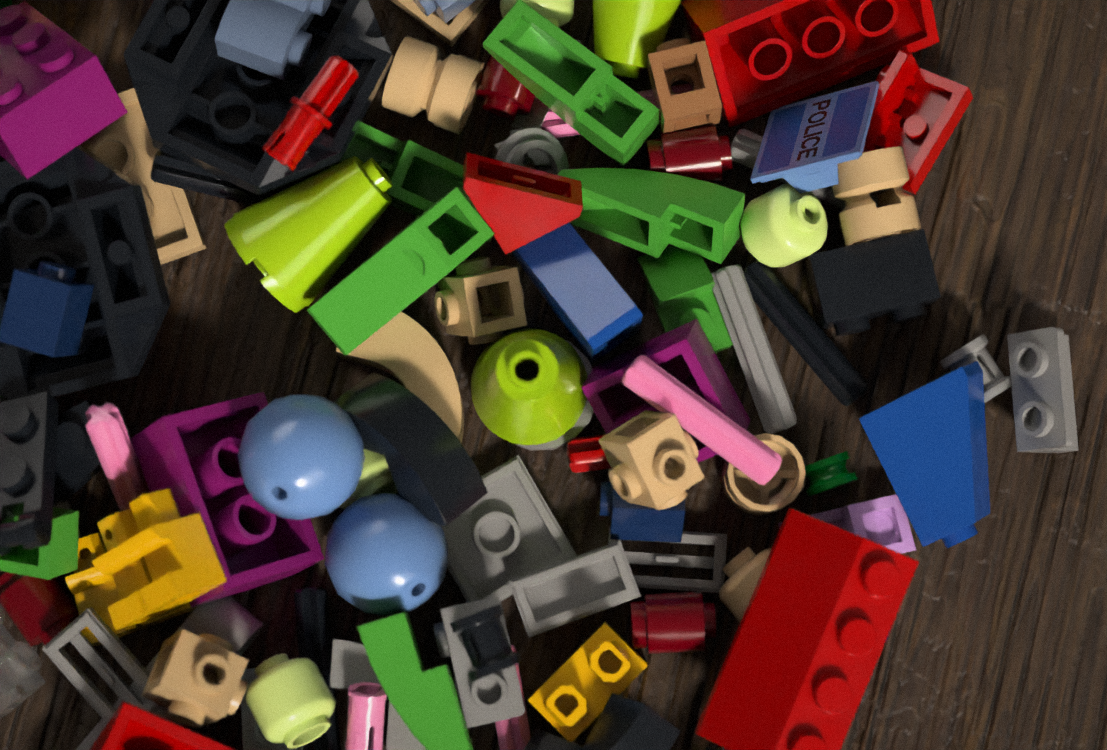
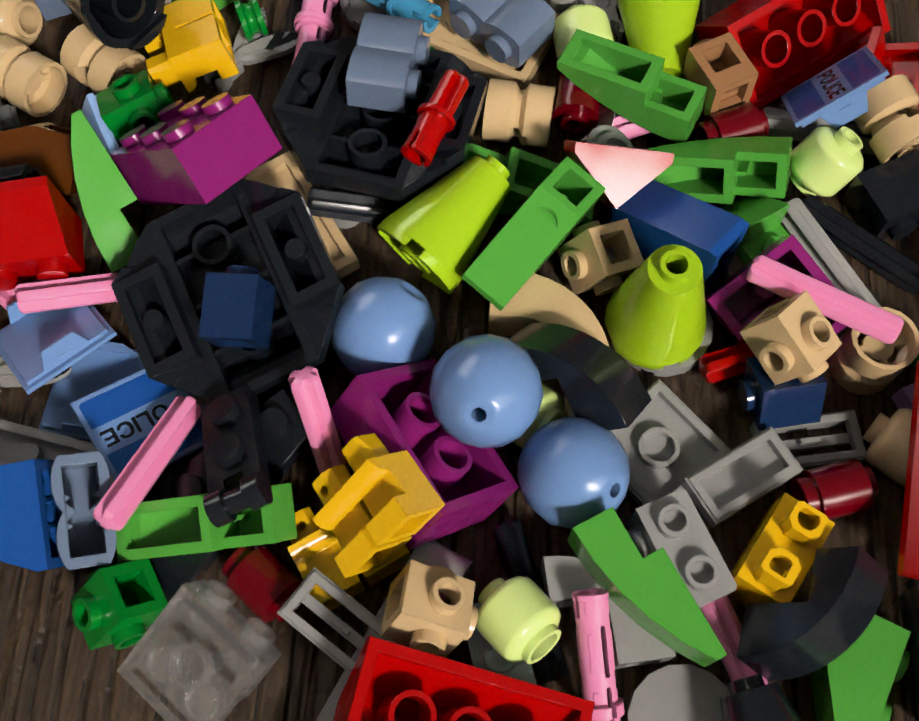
camera: 10 degrees left, 15 degrees down
(212, 346) = (383, 325): none -> medium blue piece
(486, 642) = (692, 521): black bush -> none

